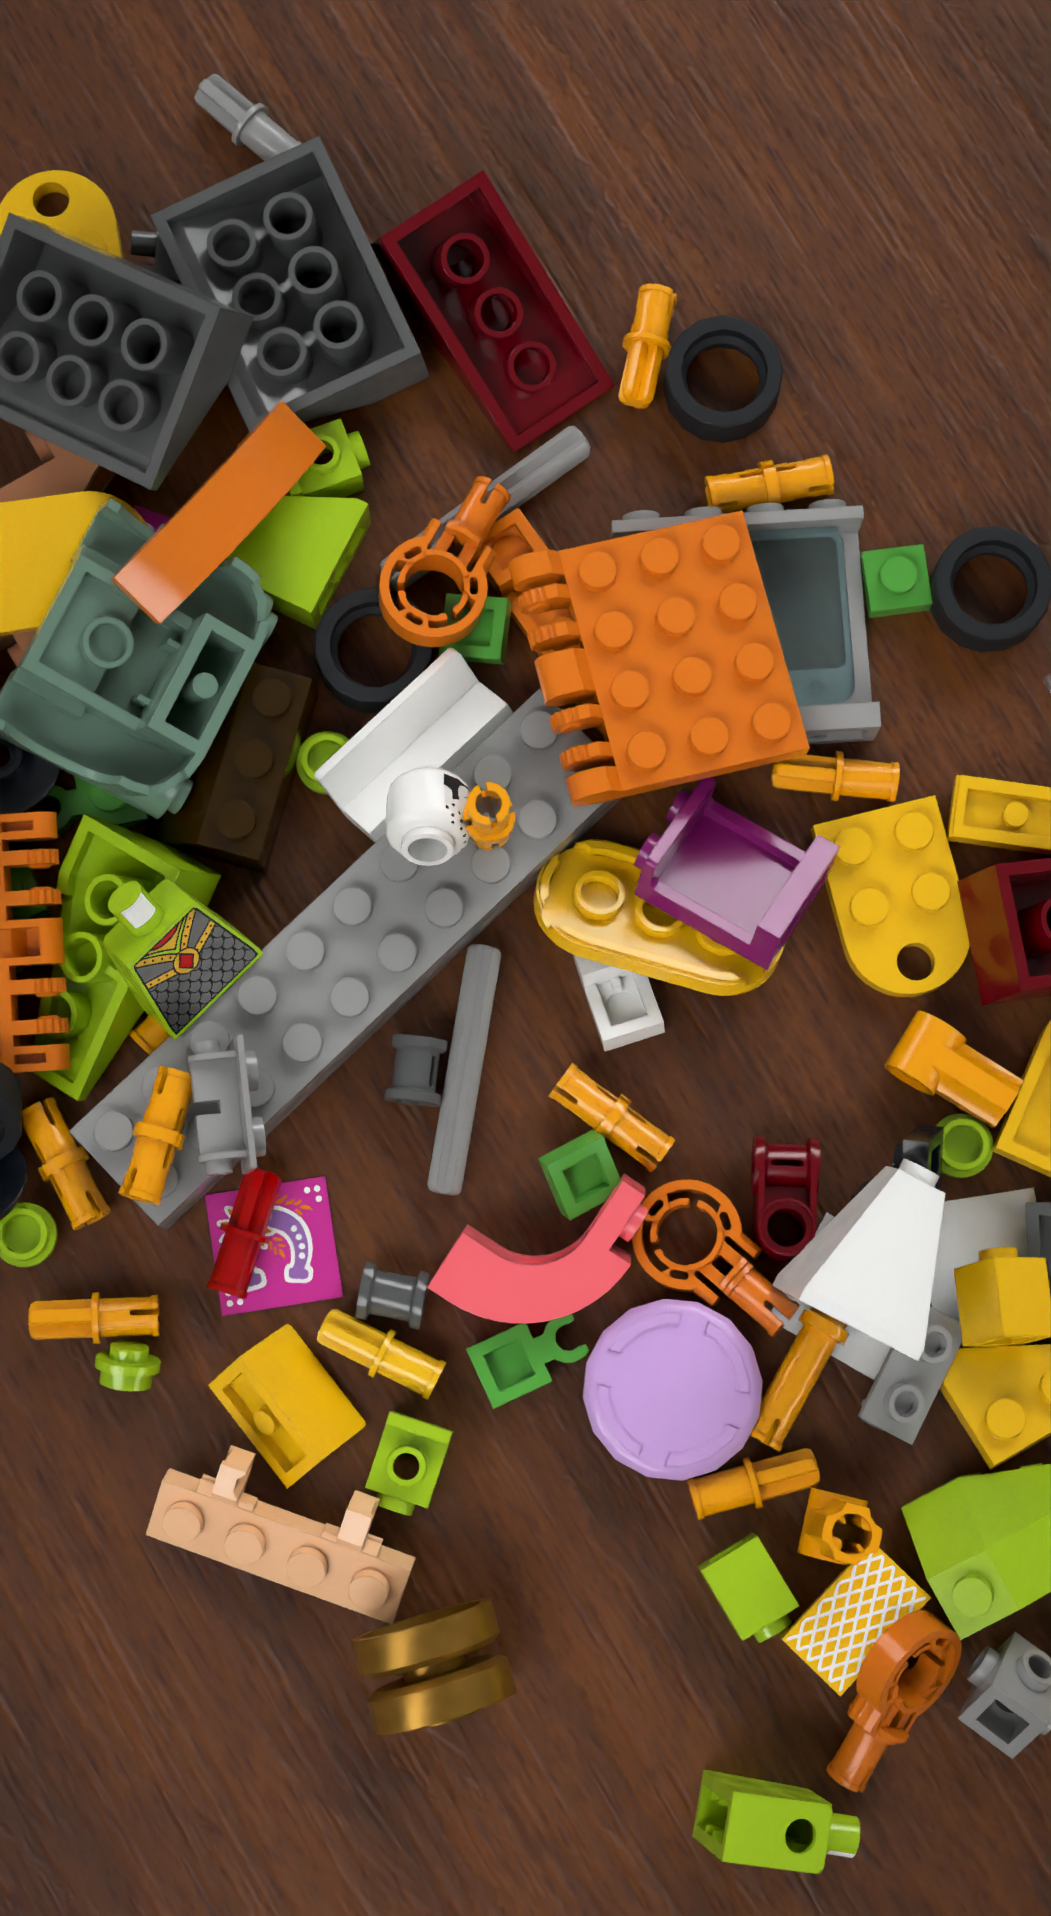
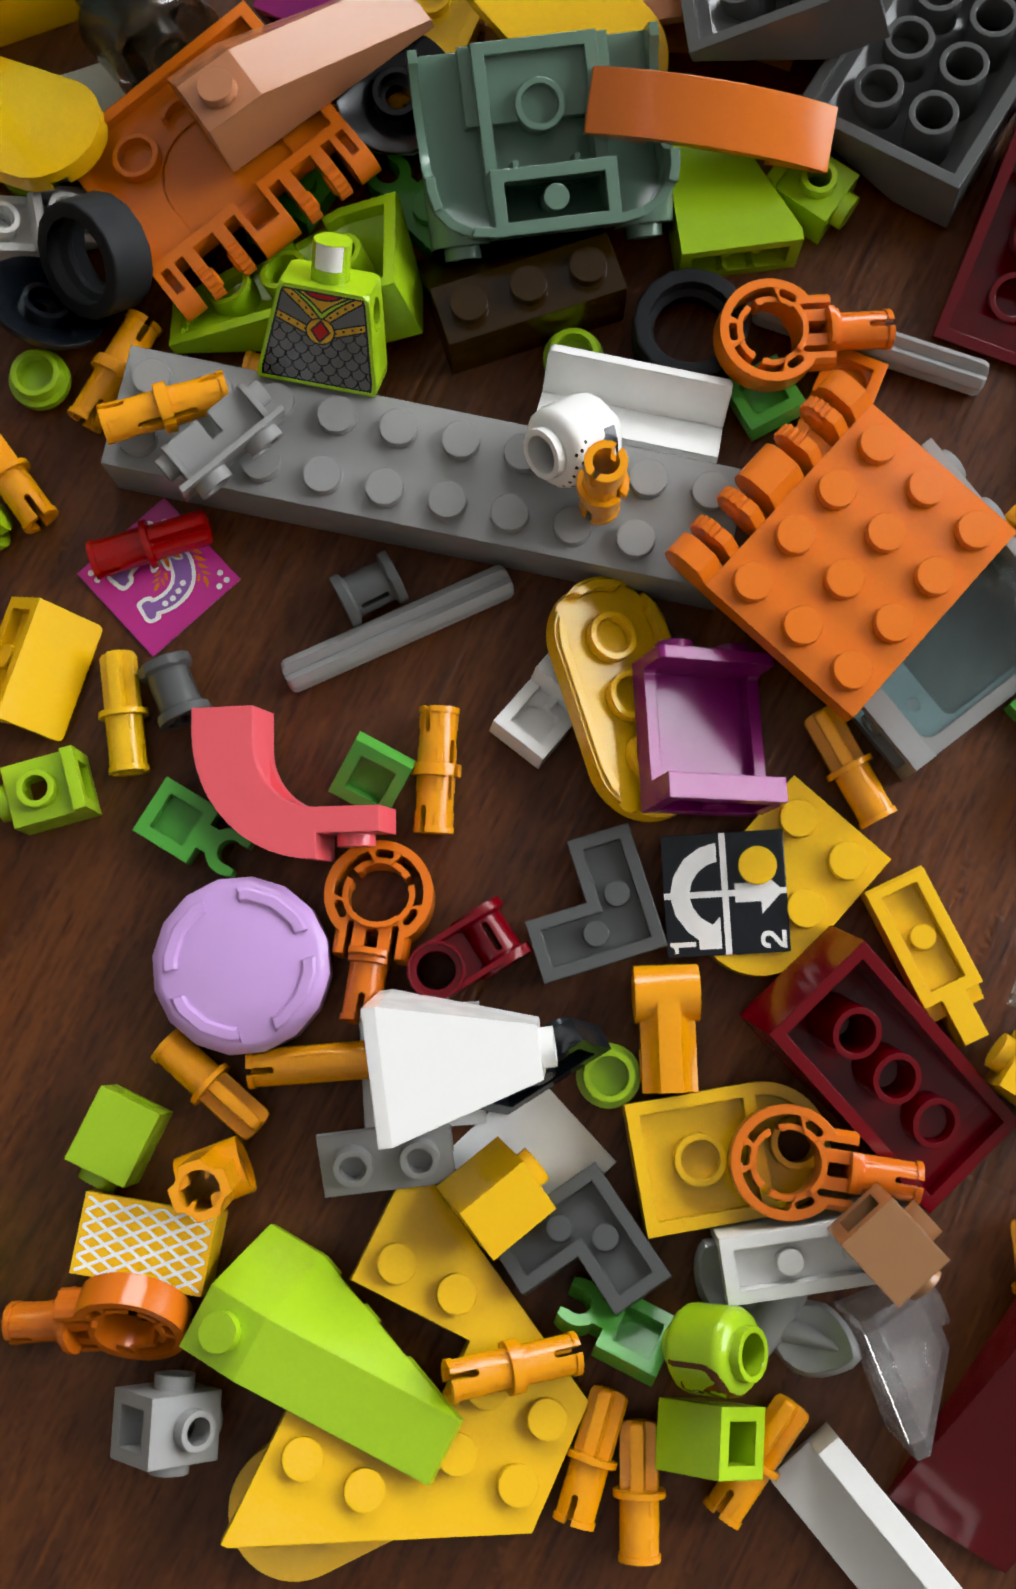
camera: 60 degrees right, 0 degrees up
(835, 1051) = (616, 915): none -> dark grey plate
(876, 965) = (712, 906): none -> black sticker

